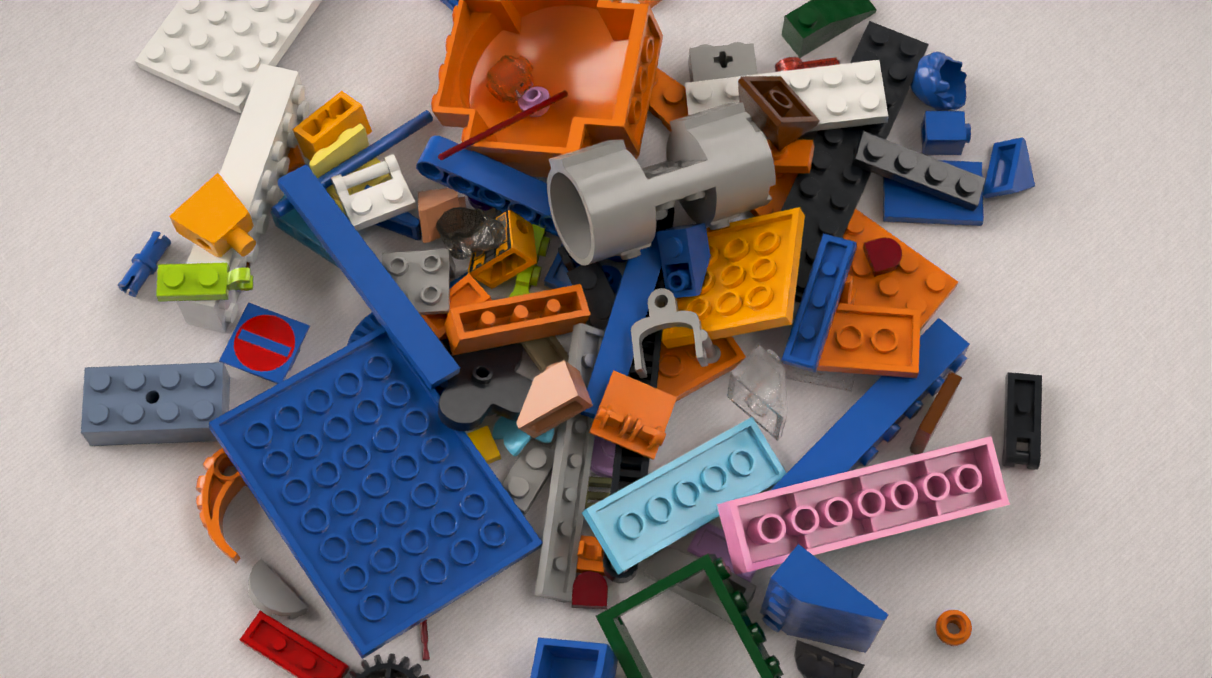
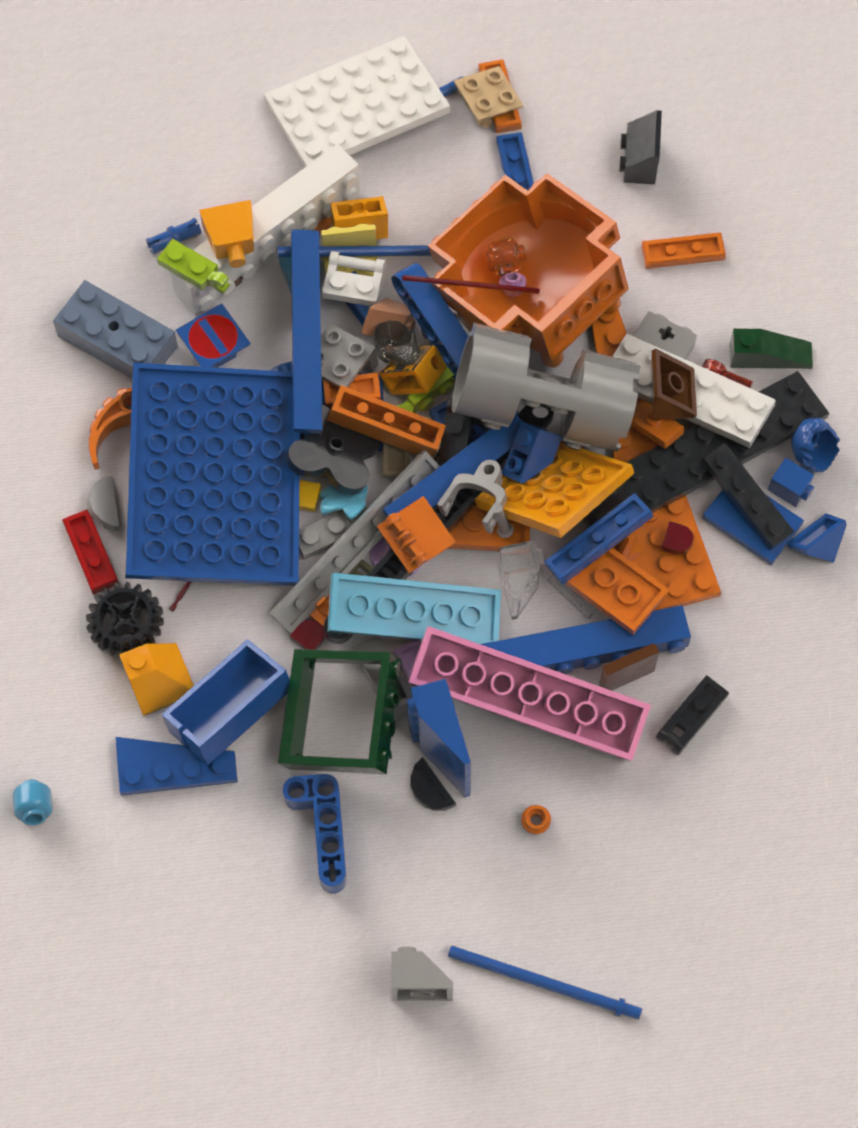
camera: 35 degrees right, 0 degrees up
(553, 399) = (369, 489): slope -> none

